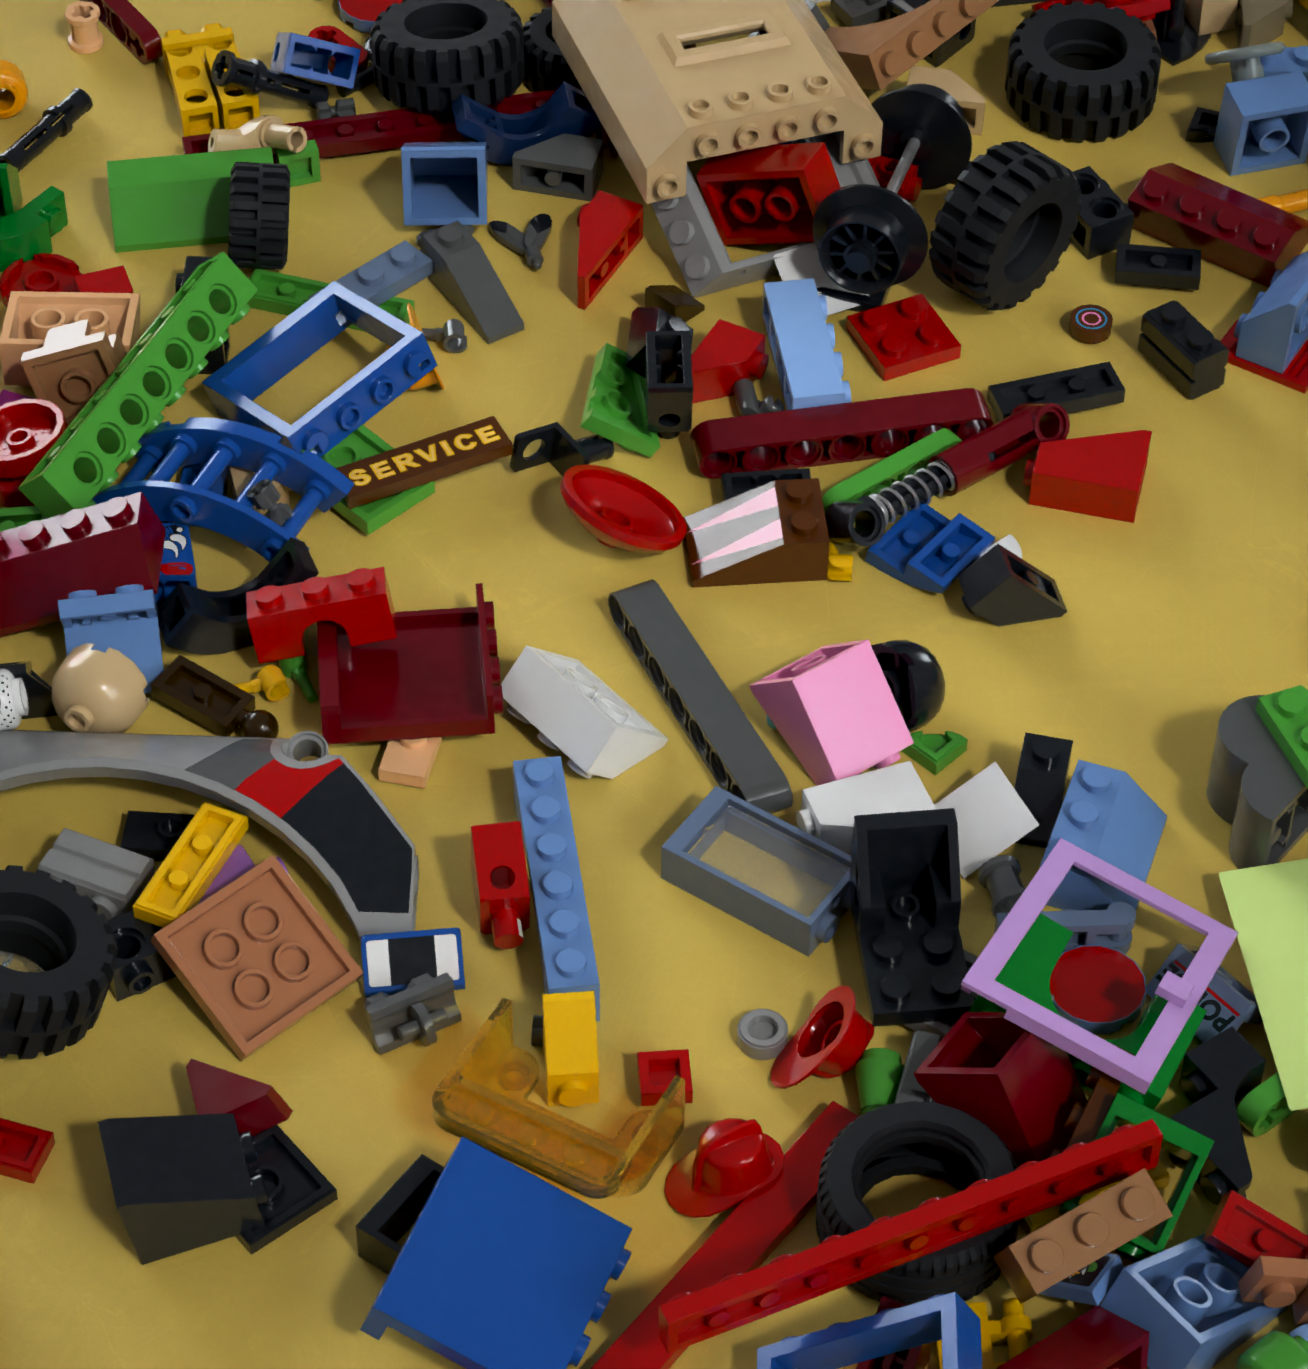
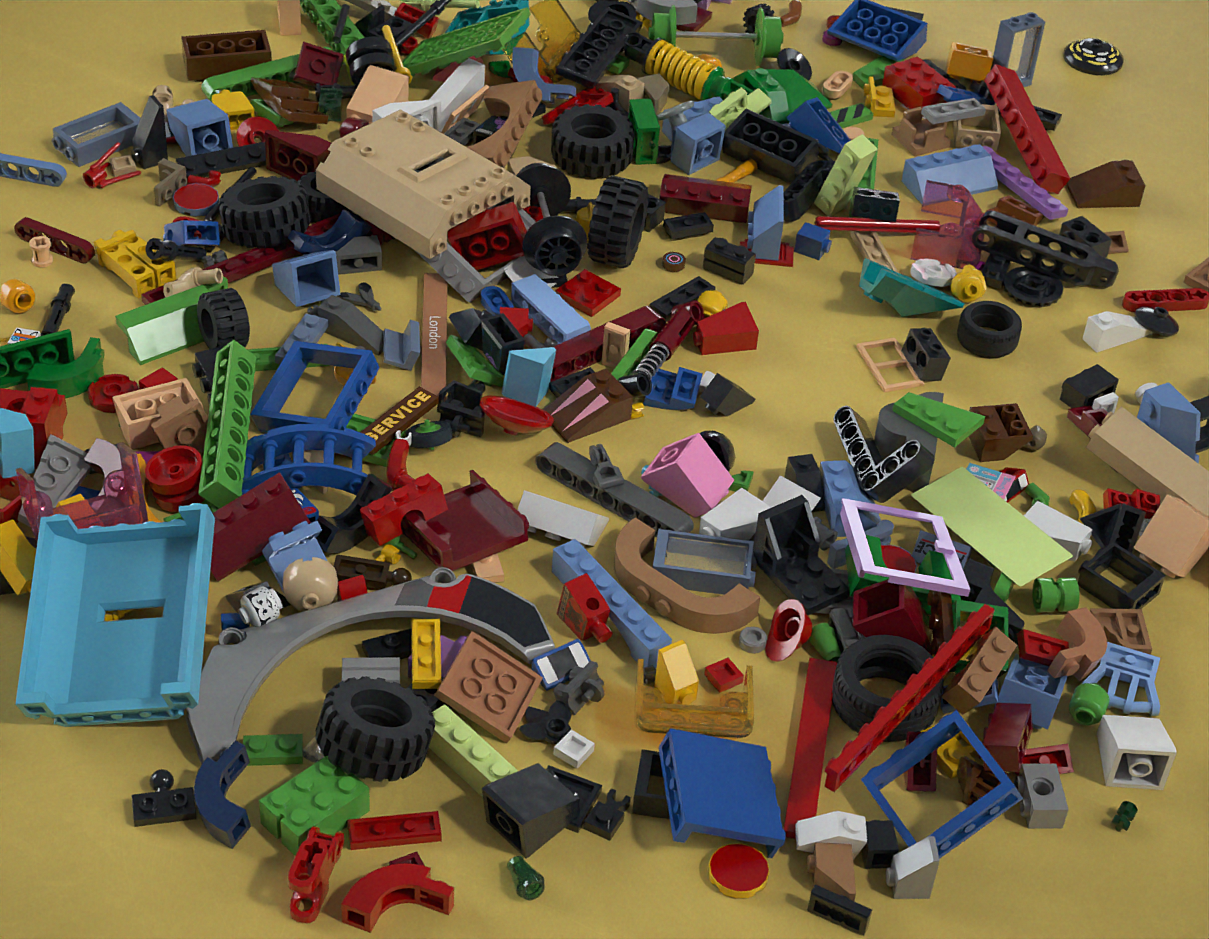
camera: 30 degrees left, 5 degrees down
(106, 1299) = (527, 881): none -> clear green cone
(152, 1042) = (467, 751): none -> yellowish green brick
(166, 718) = (351, 588): none -> red slope
(223, 1092) = (526, 755): dark red slope -> none
(264, 497) = (340, 457): dark grey piece -> none
(310, 1247) = (607, 817): none -> black plate
(323, 1049) = (547, 725): none -> black plate
(331, 1111) = (574, 748): none -> white plate
(379, 527) = (396, 463): none -> red arm
(463, 502) = (430, 434): none -> black wheel
(523, 340) = (402, 348): none -> sand blue panel
(532, 493) = (462, 419): none -> black hips
(604, 322) = (434, 333): none -> nougat tile
(607, 236) = (406, 286): red slope -> none
(673, 301) = (459, 305): dark brown slope -> none
(684, 450) = (528, 374): none -> medium azure slope
(692, 649) = (601, 459): none -> dark grey piece
(712, 966) = (670, 599): none -> medium nougat arch
(724, 1168) = (781, 707): red piece -> none
(732, 302) = (494, 298): none -> blue plate
(864, 437) = (614, 344): none -> light nougat plate
(1094, 416) = (712, 302): none -> yellow head
(1173, 807) = (876, 476): none -> black beam
(1181, 76) = (646, 130): none -> green window

